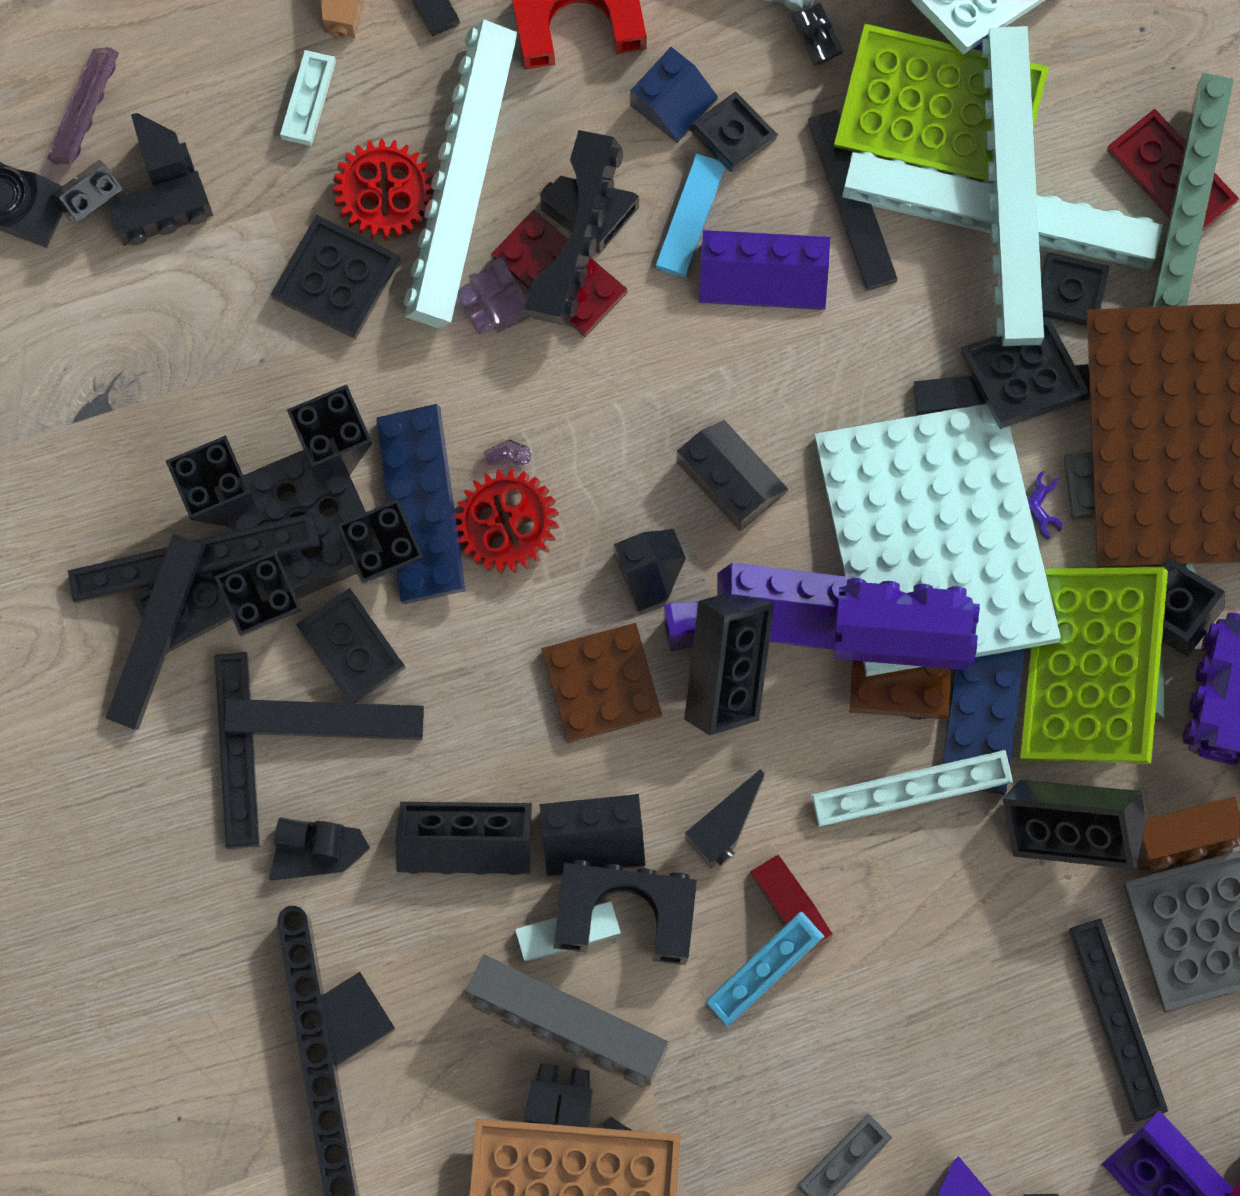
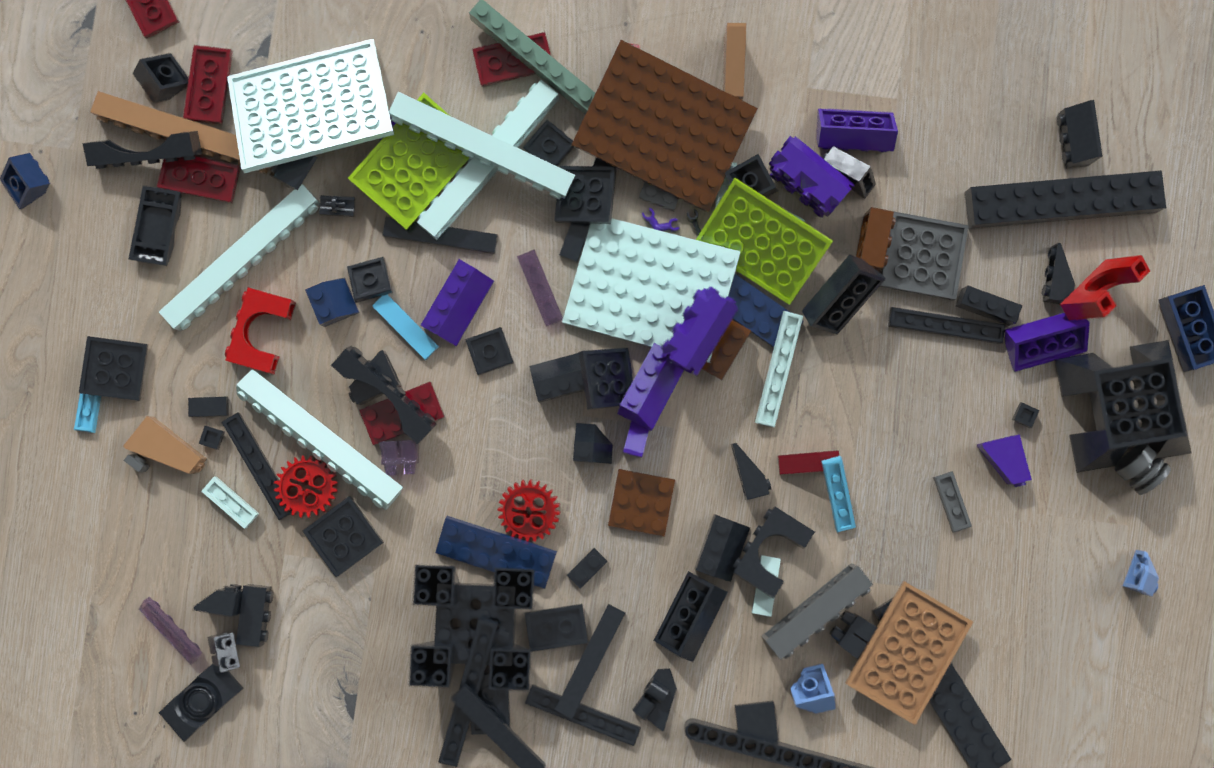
camera: 60 degrees left, 10 degrees up
(386, 102) = (255, 461): none -> black tile
(389, 27) = (211, 437): none -> black plate
(440, 1079) = (813, 690): none -> medium blue slope
(462, 650) = (587, 568): none -> black plate
(510, 451) = (490, 488): clear purple arm -> none
(716, 352) = (489, 351): none -> black tile
(728, 662) = (669, 432): black slope -> none
(765, 527) = (605, 376): none -> black plate
(849, 379) = (540, 288): none -> clear purple plate
(1074, 554) = (694, 221): none -> black hand
(1183, 1067) = (989, 305): none -> black brick

